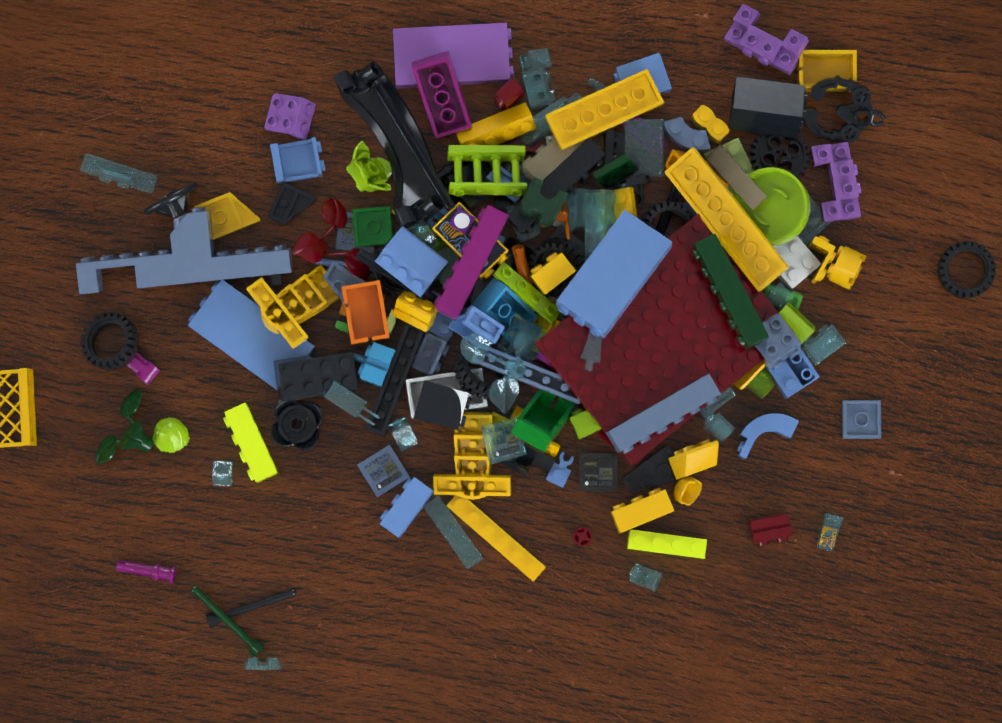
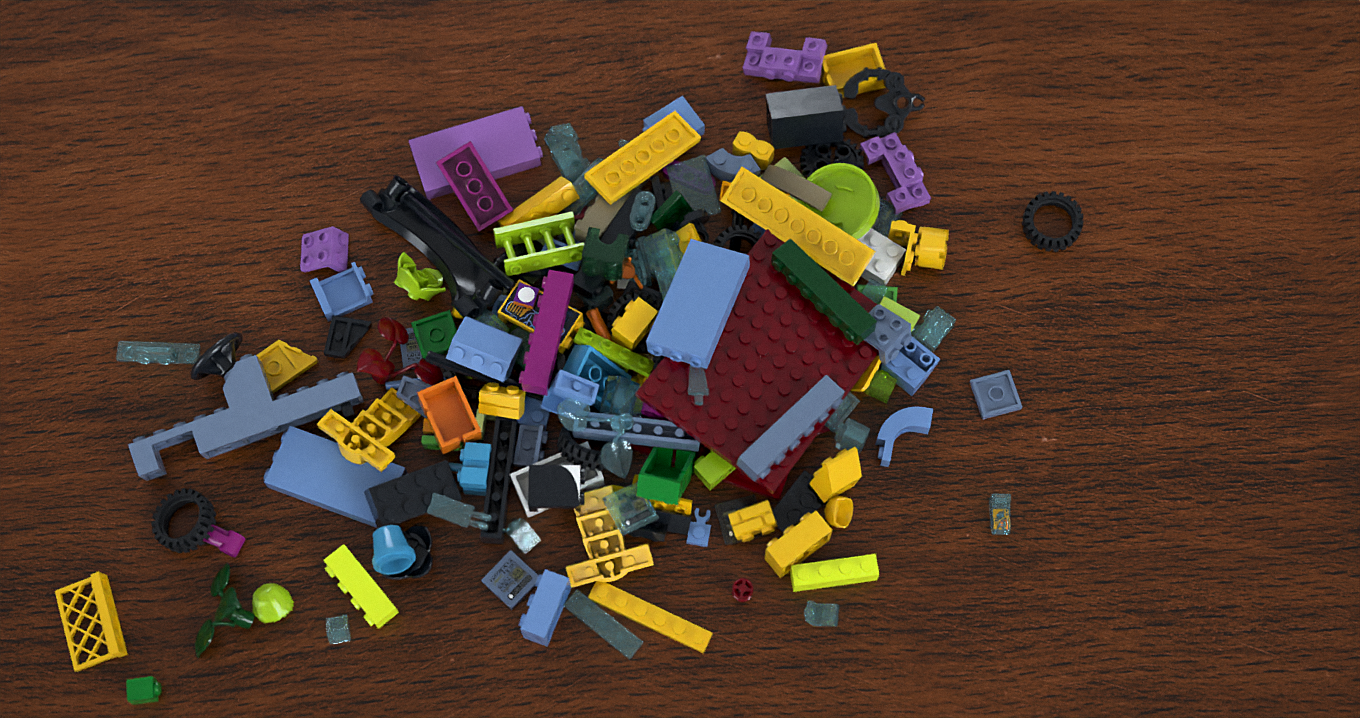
camera: 15 degrees left, 15 degrees down
(44, 482) = (143, 690): none -> green brick
(285, 422) = (391, 550): none -> dark azure piece
(508, 95) = (542, 171): dark red brick -> none
(589, 165) = (642, 212): none -> clear light blue plate
(608, 479) = (752, 521): none -> yellow brick
(770, 528) = (938, 527): dark red brick -> none

